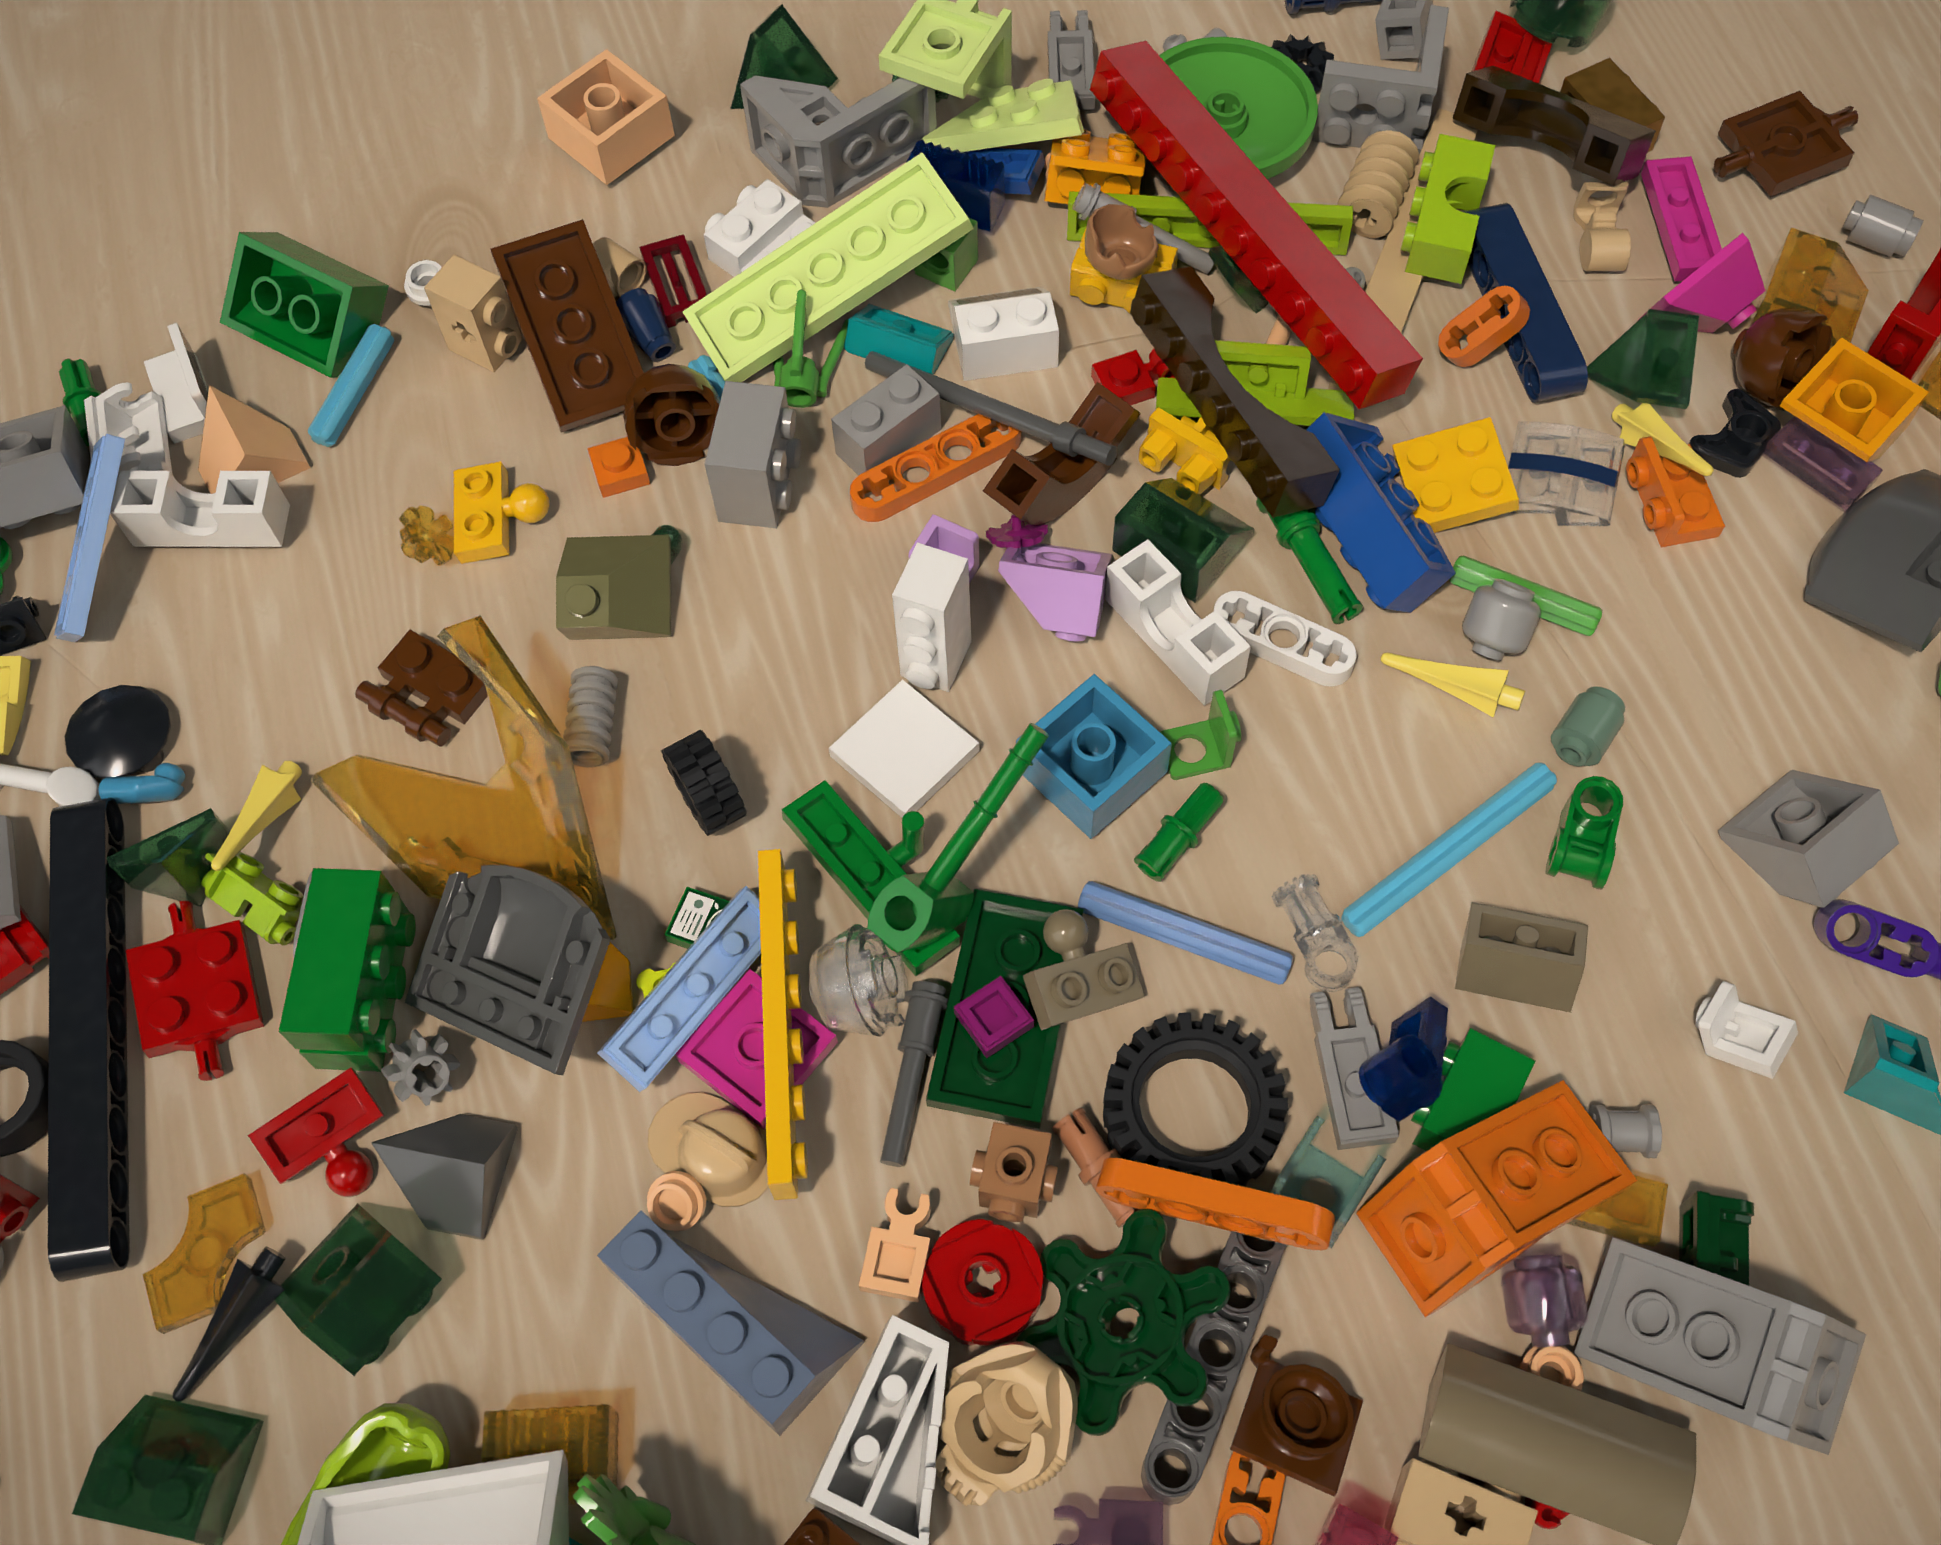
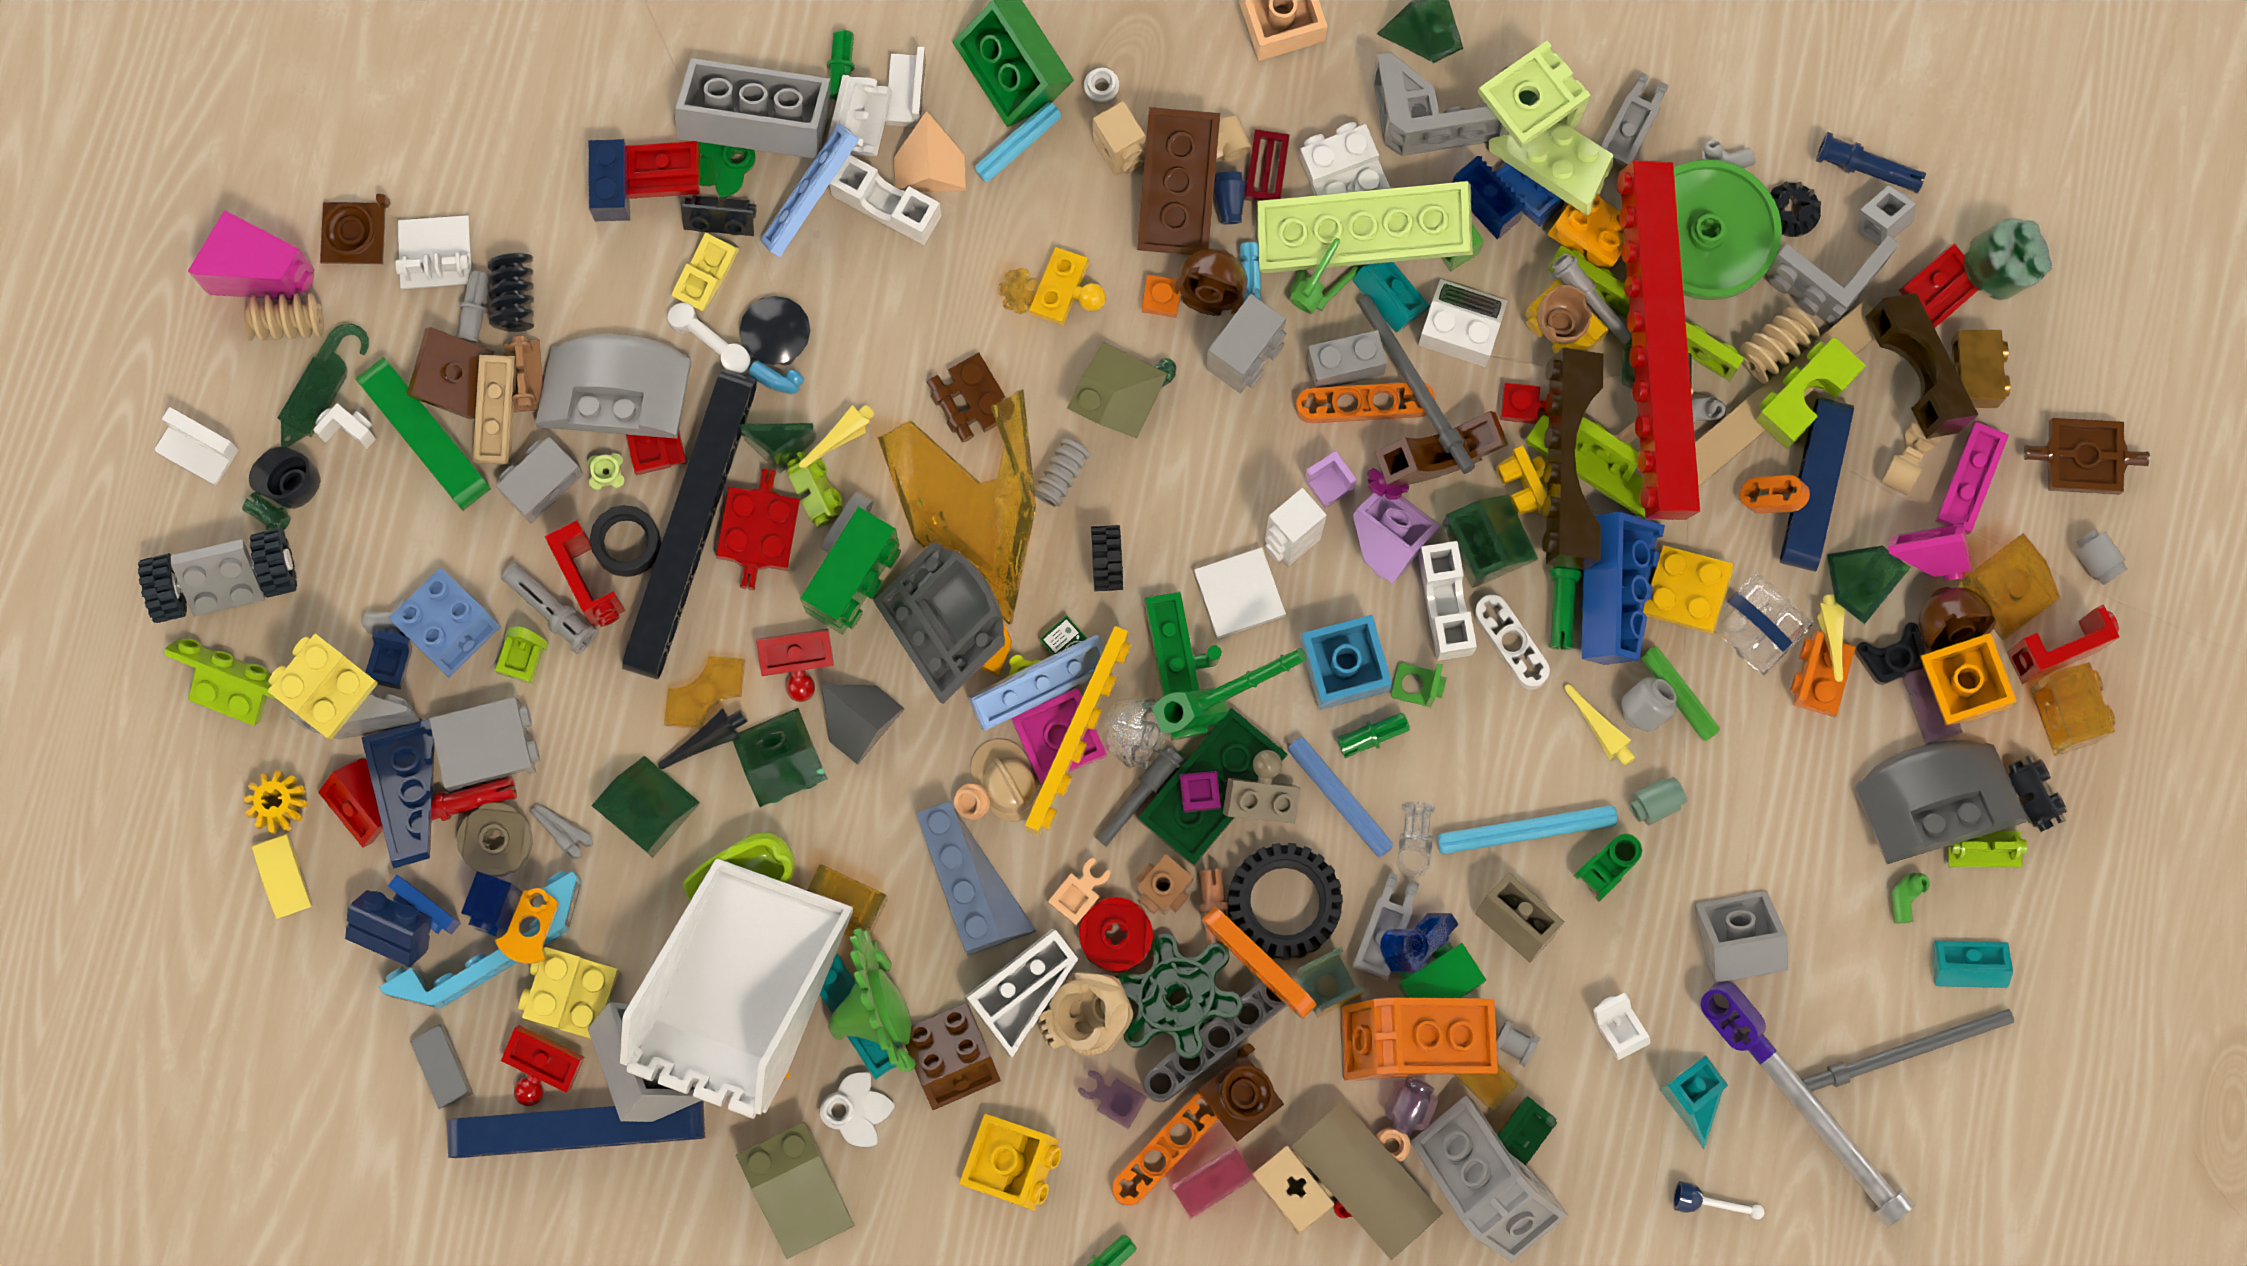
camera: 25 degrees right, 15 degrees up
(420, 1083) = (866, 649): light grey gear -> none

